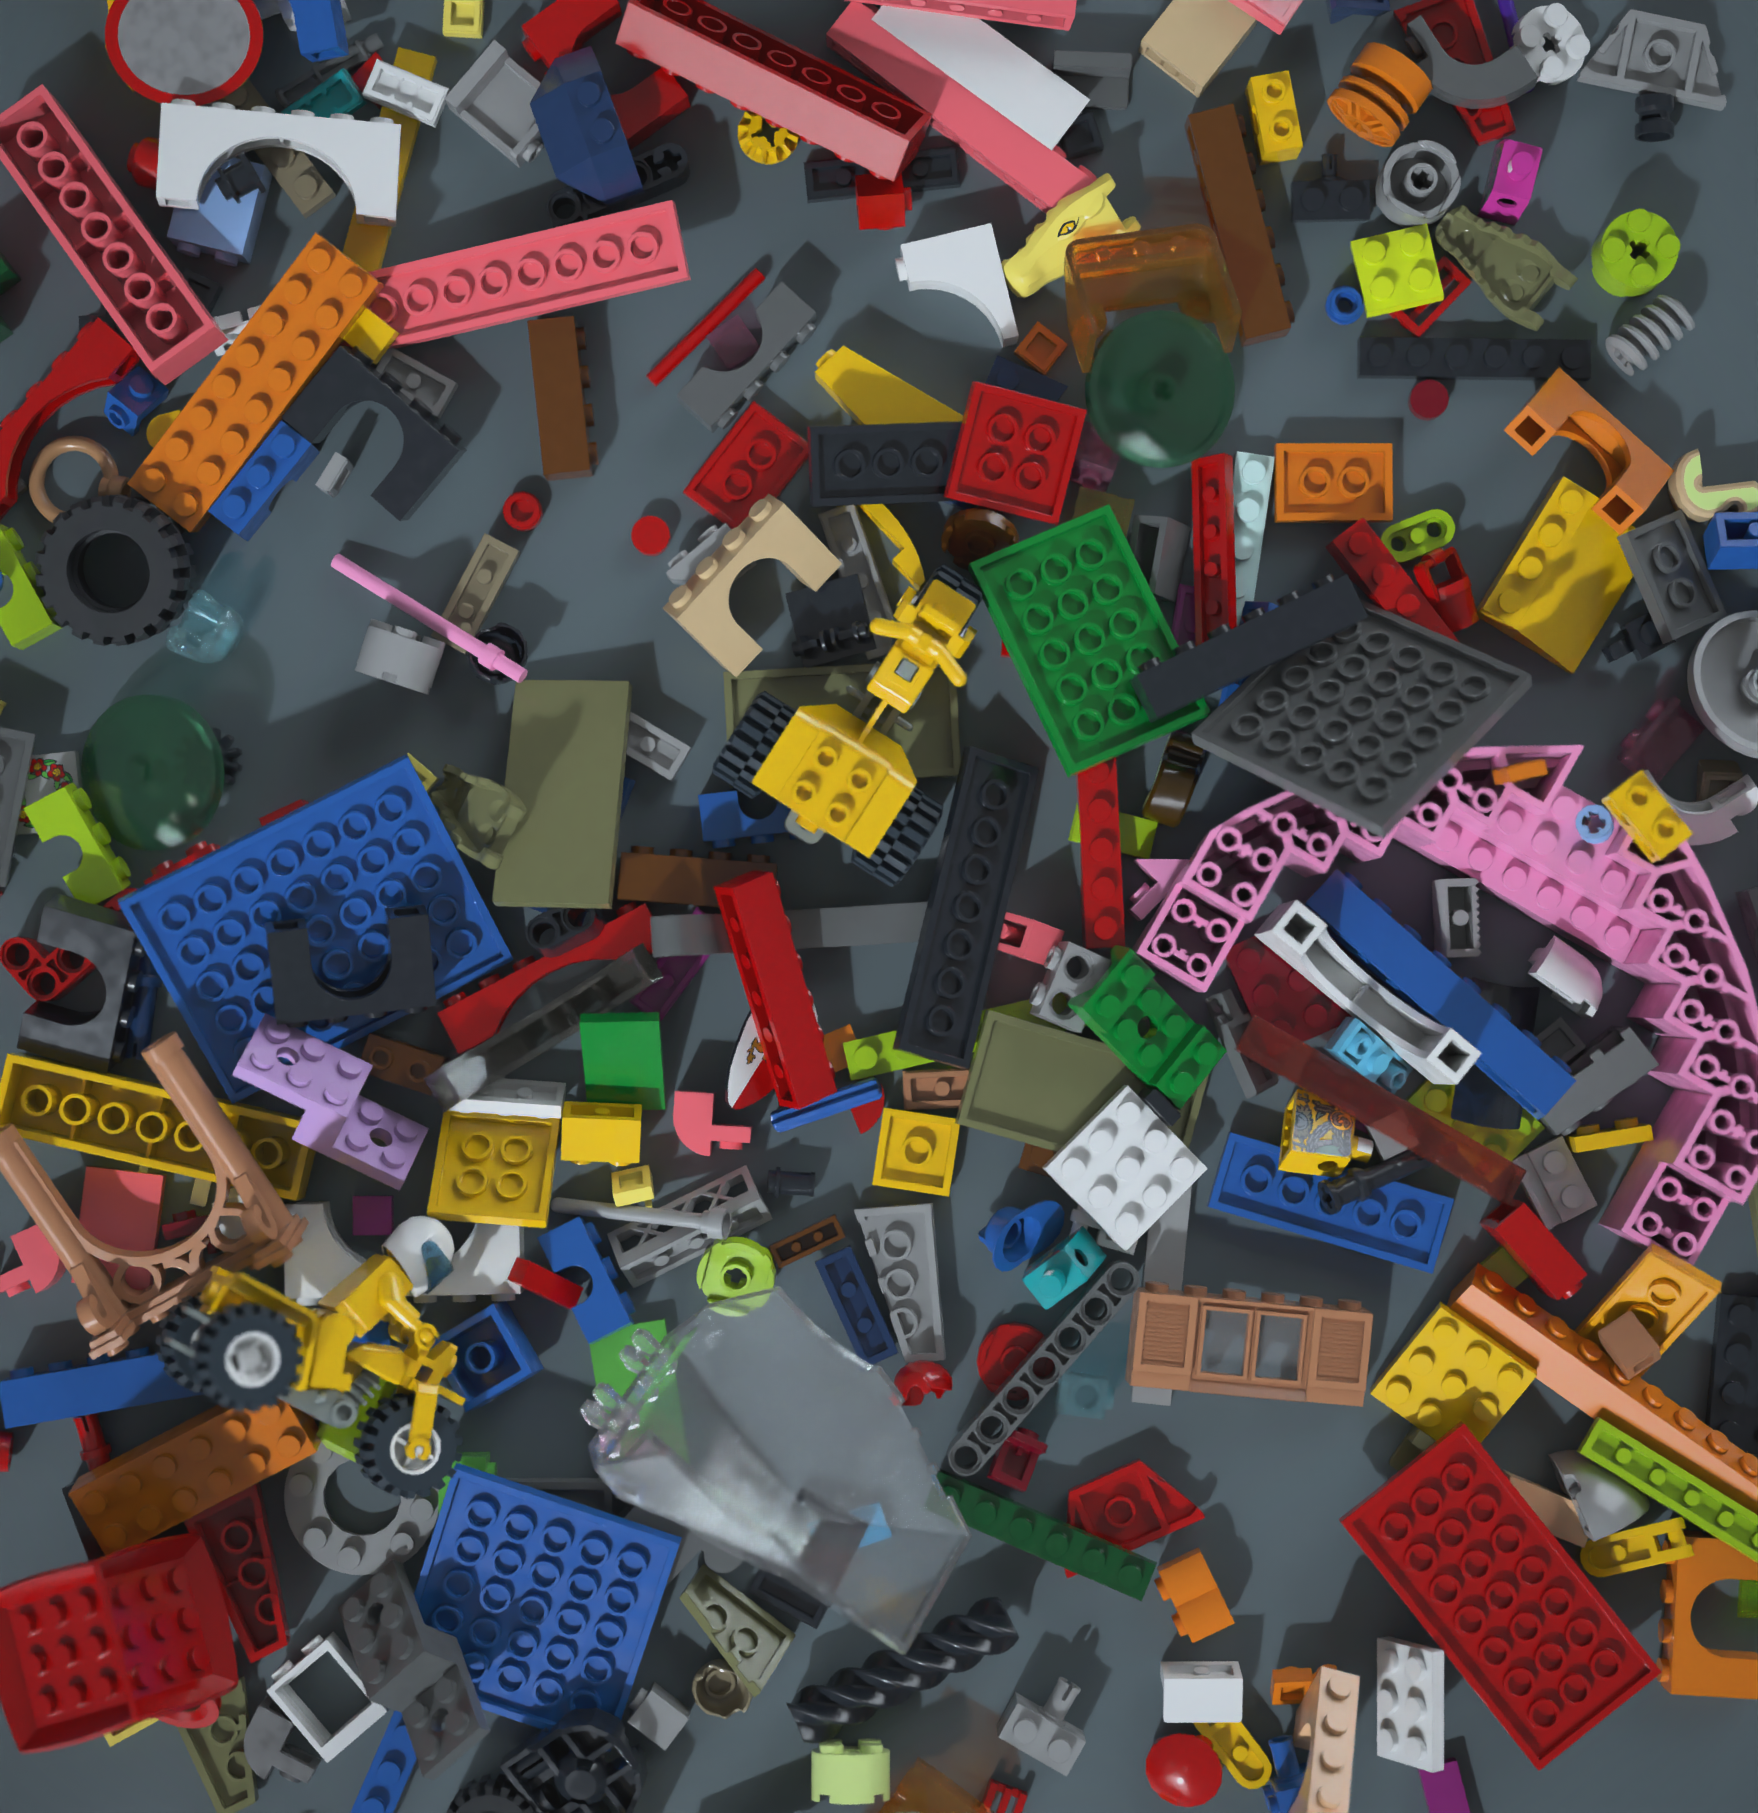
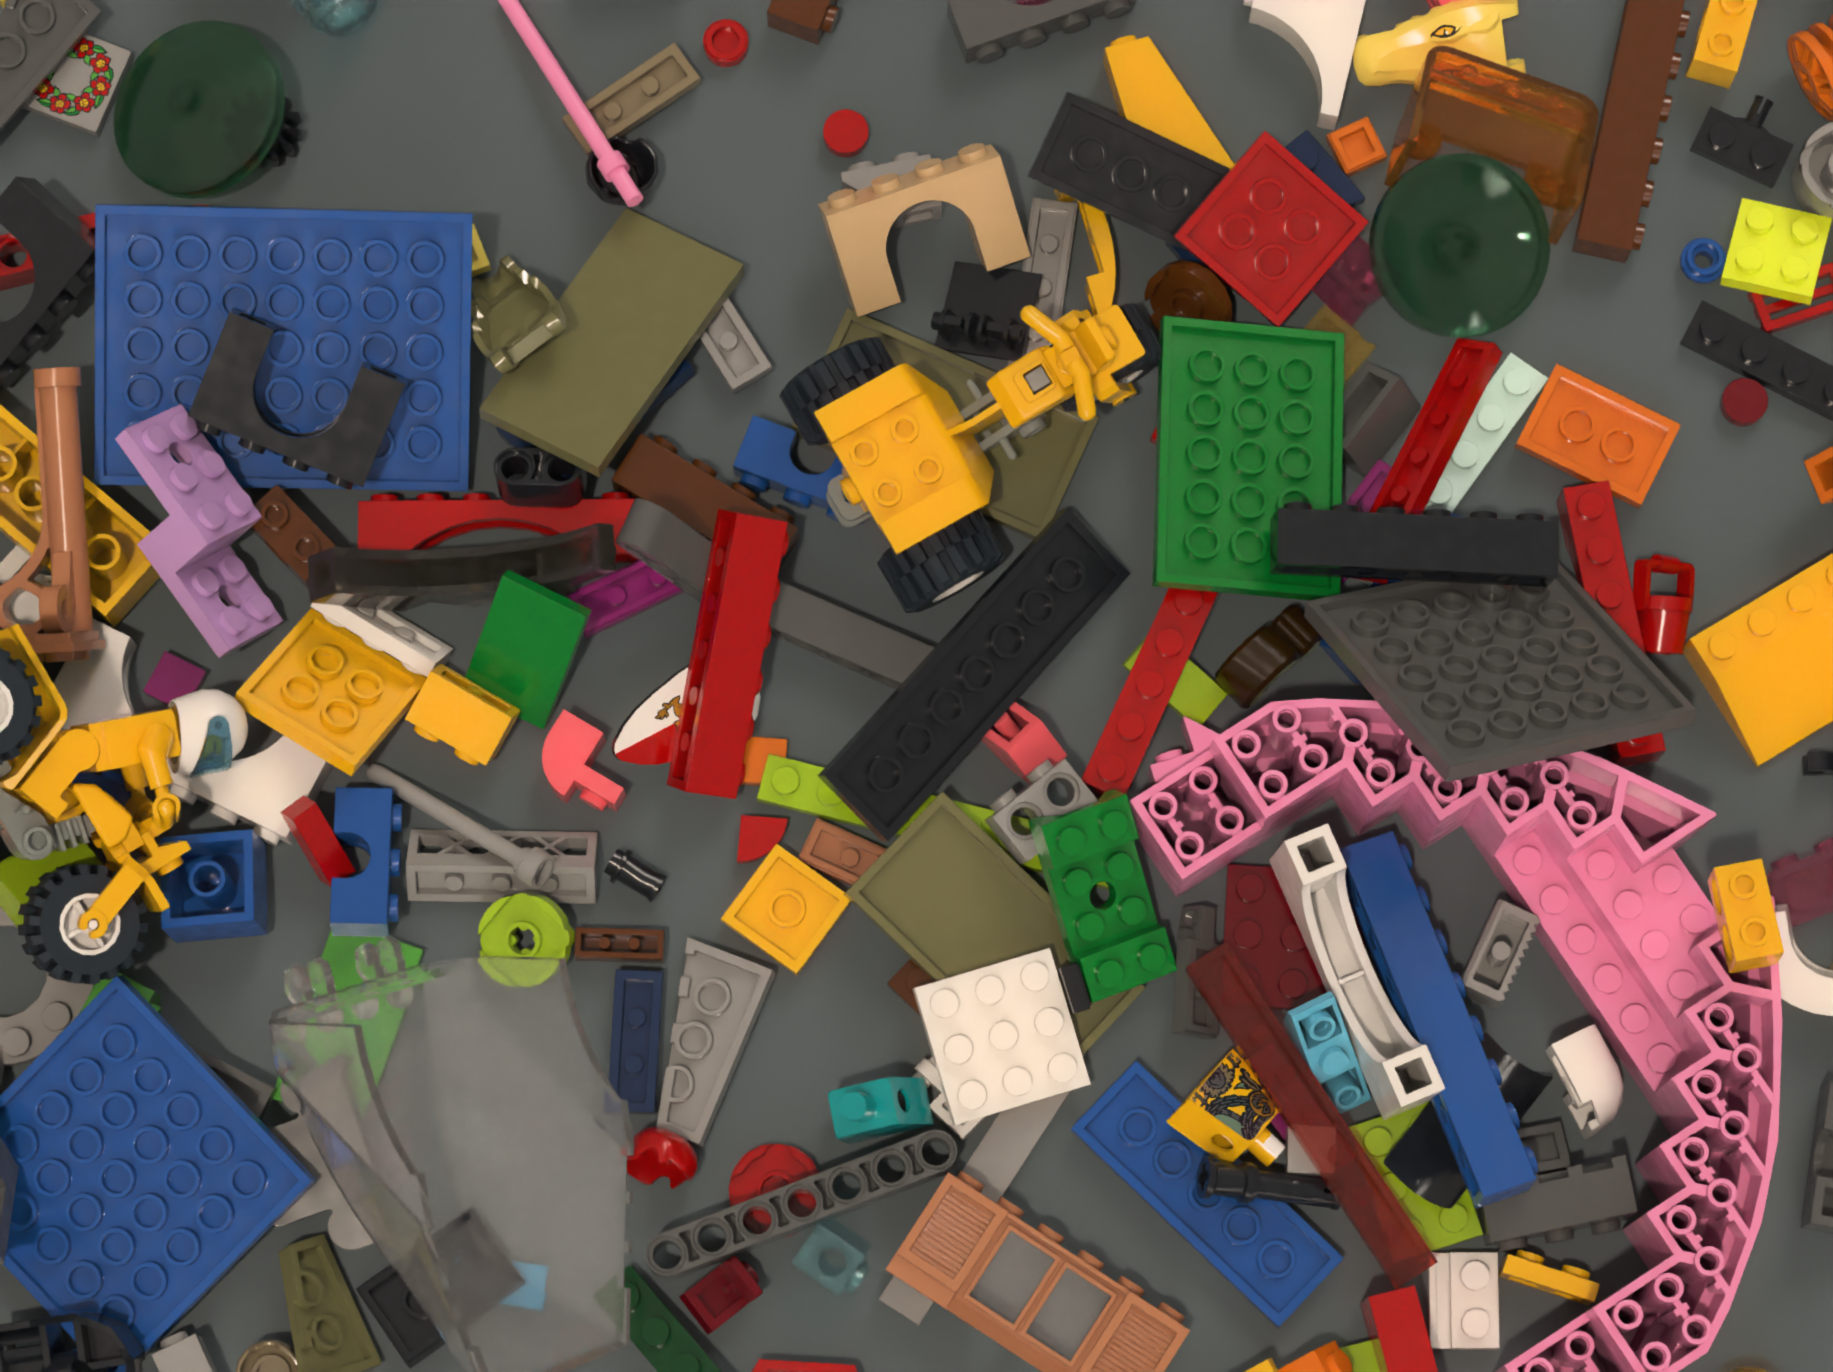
camera: 35 degrees right, 10 degrees down
(68, 814) = (88, 104): lime arch -> none
(144, 1000) = (61, 340): dark blue pin -> none
(399, 656) = (517, 121): light grey brick -> none
(633, 1186) = (465, 790): light yellow tile -> none
(749, 464) = (992, 106): red tile -> none
(844, 1099) = (717, 810): blue axle -> none
(1021, 1233) = (855, 1052): blue piece -> none
(1415, 536) = (1658, 532): lime plate -> none
(1519, 771) = (1632, 800): orange tile -> none
(1604, 816) = (1687, 896): light blue bush -> none

